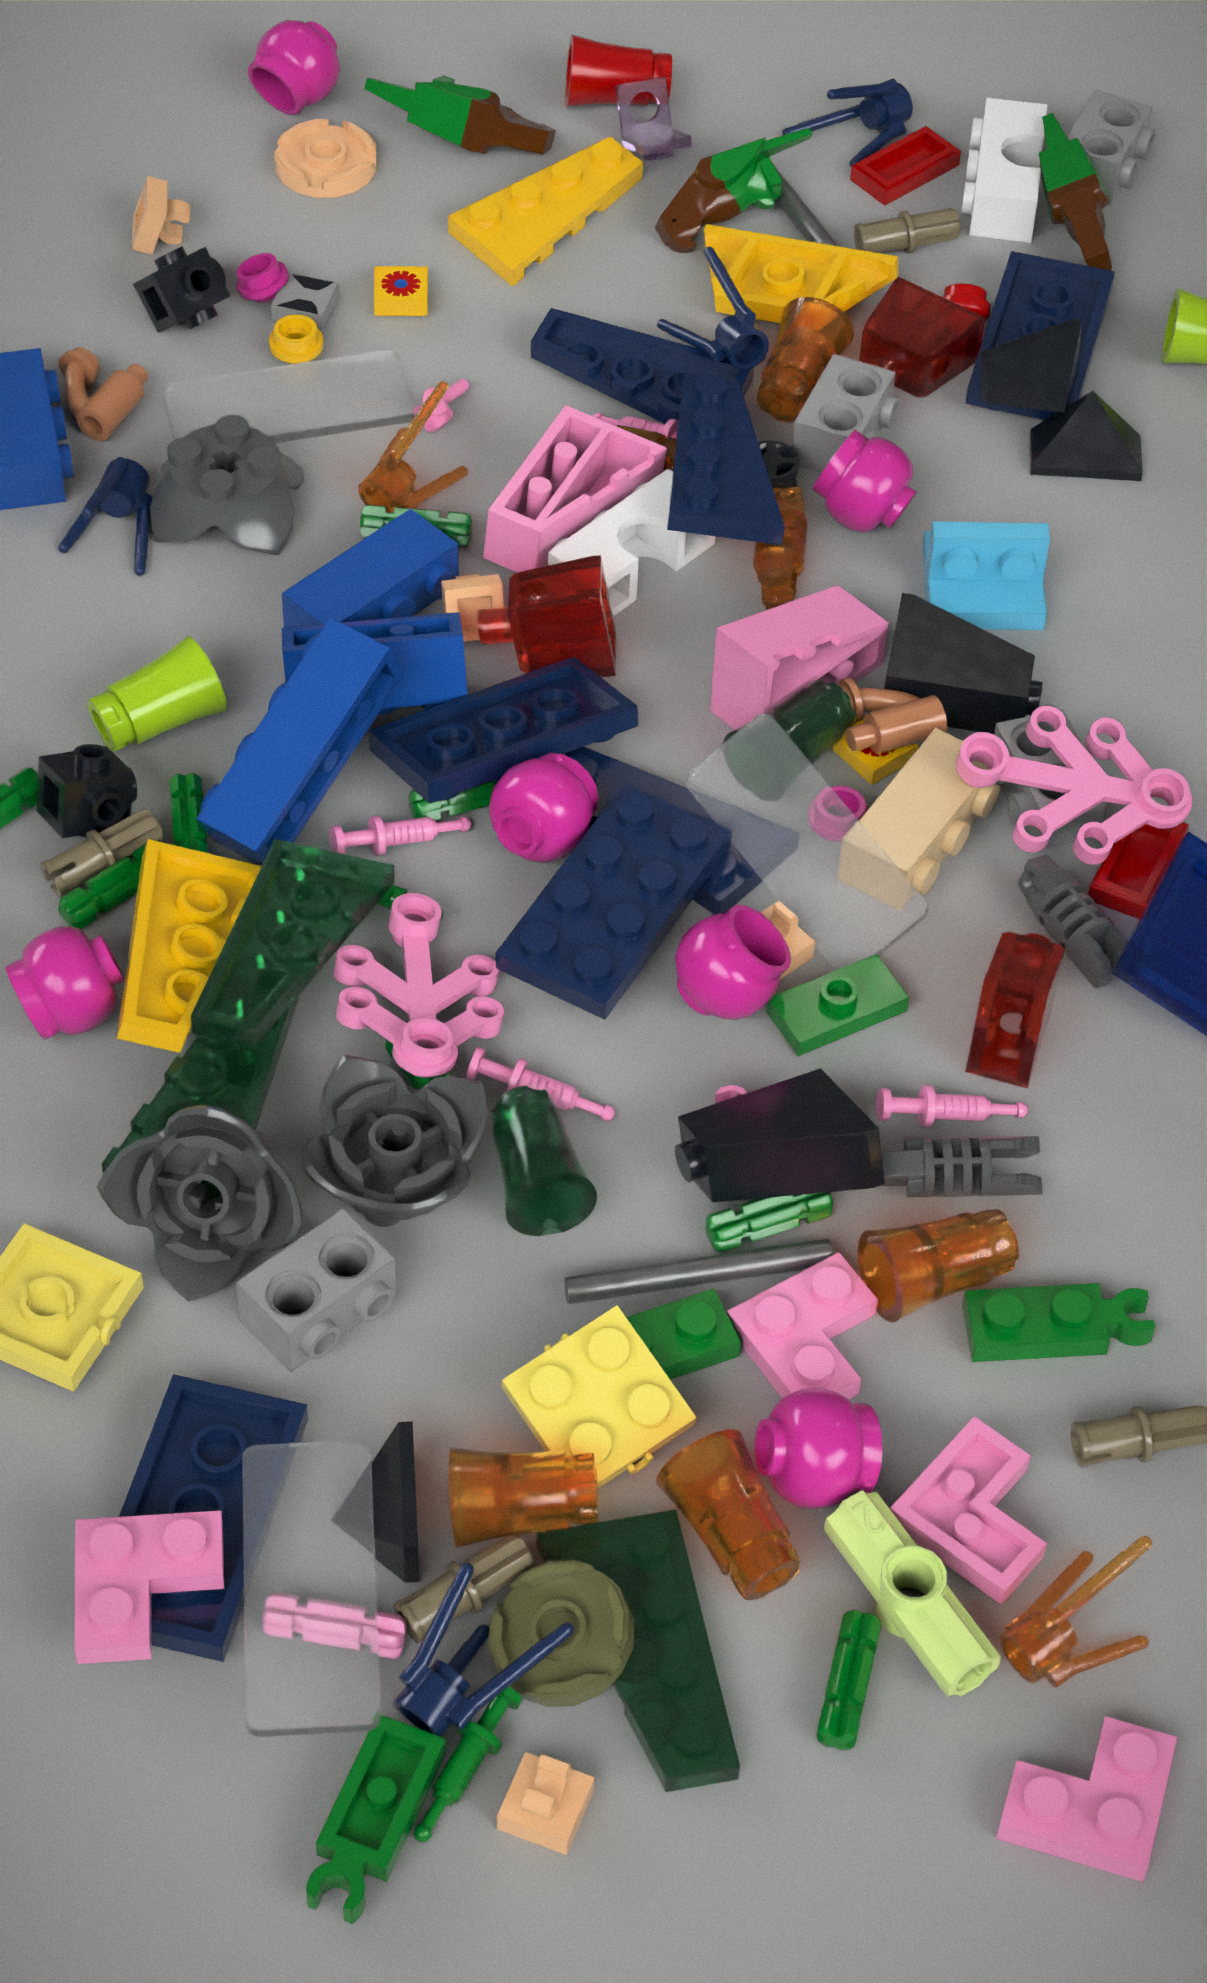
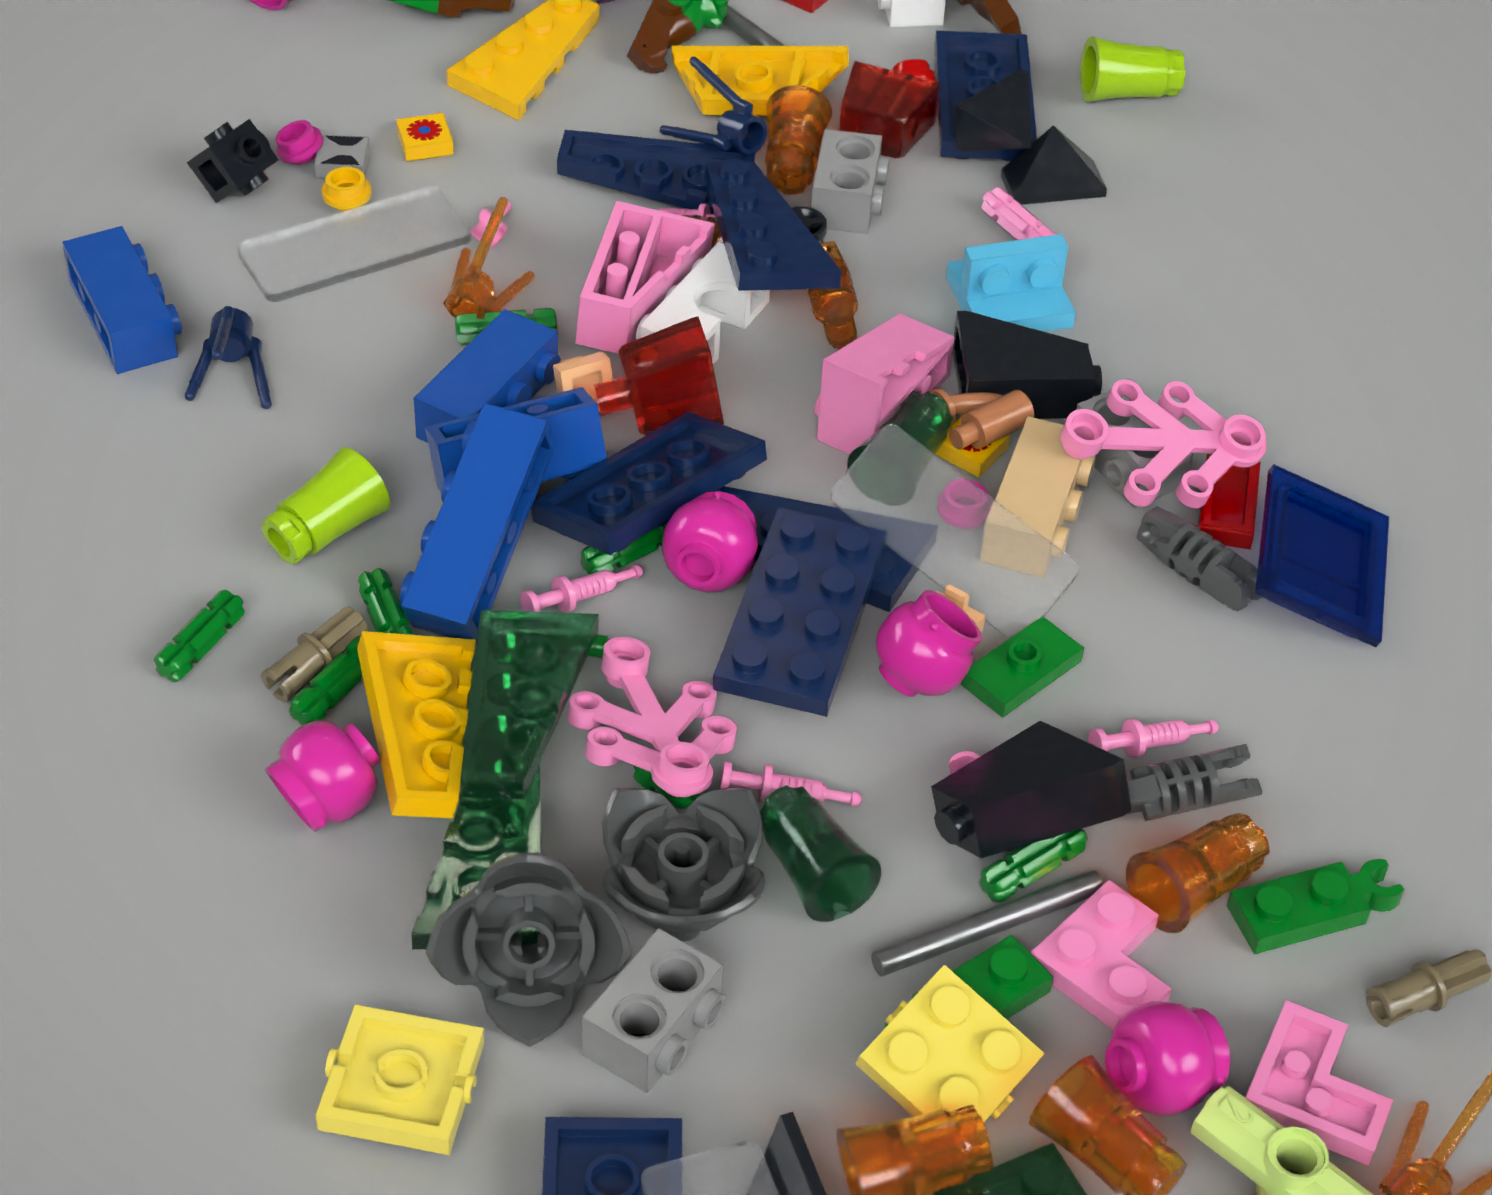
camera: 15 degrees left, 5 degrees down
(84, 790) = (285, 599): black brick -> none
(110, 404) = (195, 267): nougat plant -> none
(154, 215) = (183, 105): light nougat tile -> none
(226, 480) = (326, 311): dark grey brick -> none
(325, 158) = (320, 40): light nougat tile -> none
(866, 483) = (889, 229): dark pink piece -> none
(907, 231) = (843, 27): dark tan axle -> none
(1020, 982) = (1189, 616): clear red torso -> none
(1023, 492) = (1013, 216): none -> bright pink axle

